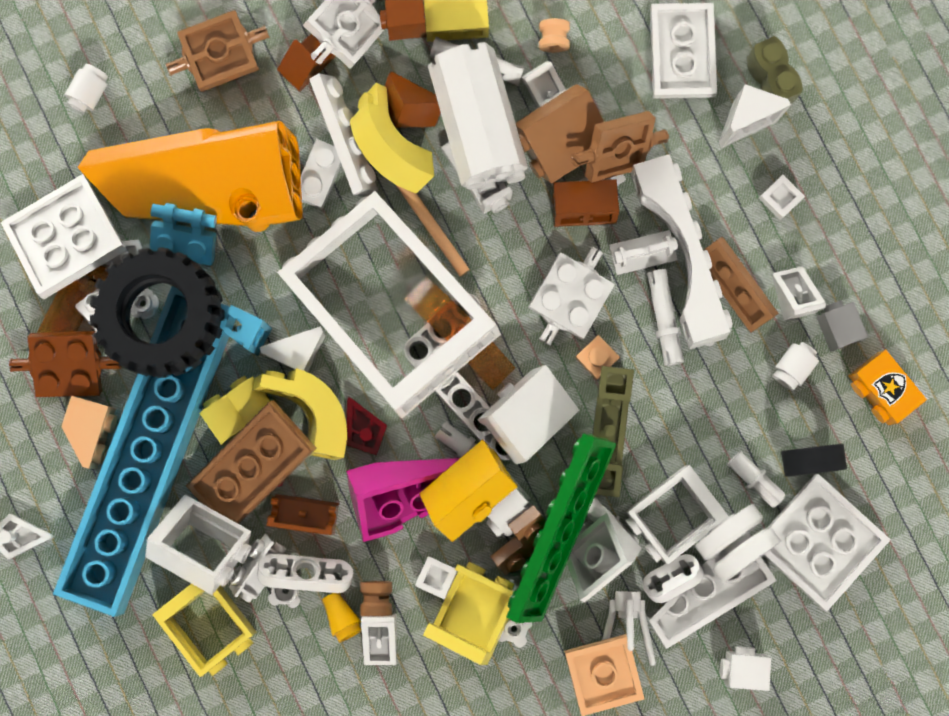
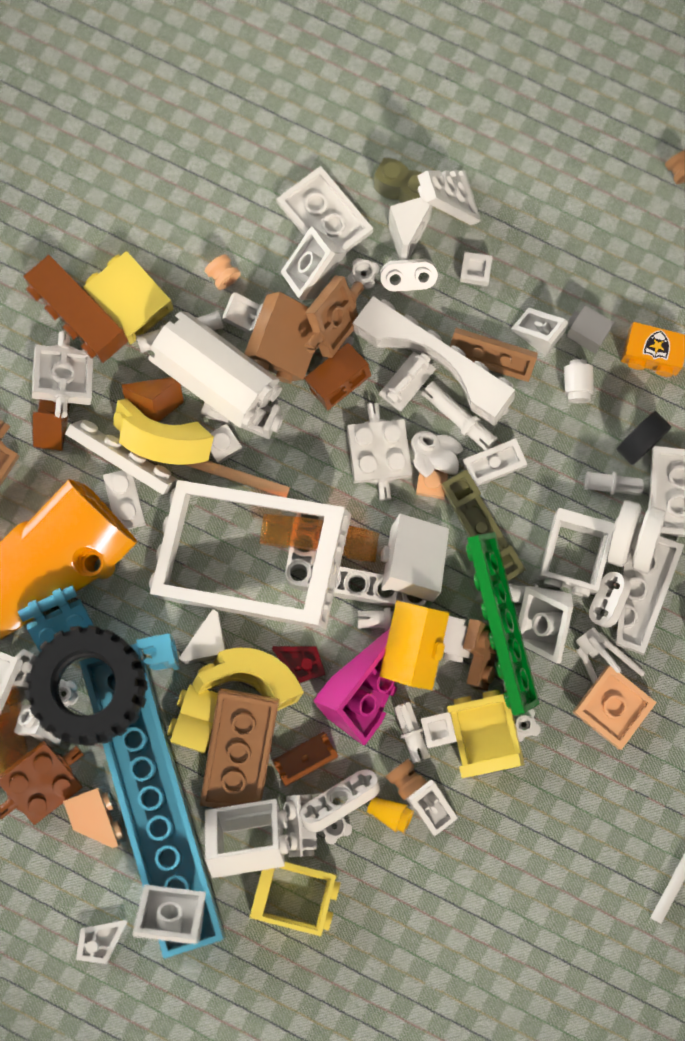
camera: 35 degrees left, 5 degrees down
(82, 563) = (170, 914): none -> white slope
(412, 561) = (411, 731): none -> white axle
(441, 189) = (224, 444): none -> white plate
(620, 338) = (438, 454): none -> white plate
(638, 86) = (312, 264): none -> white slope
(665, 382) = (495, 462): none -> white plate
(683, 120) = (363, 265): none -> white plate
(718, 156) = (408, 272): none -> white plate
(807, 112) = (450, 194): none -> white wing

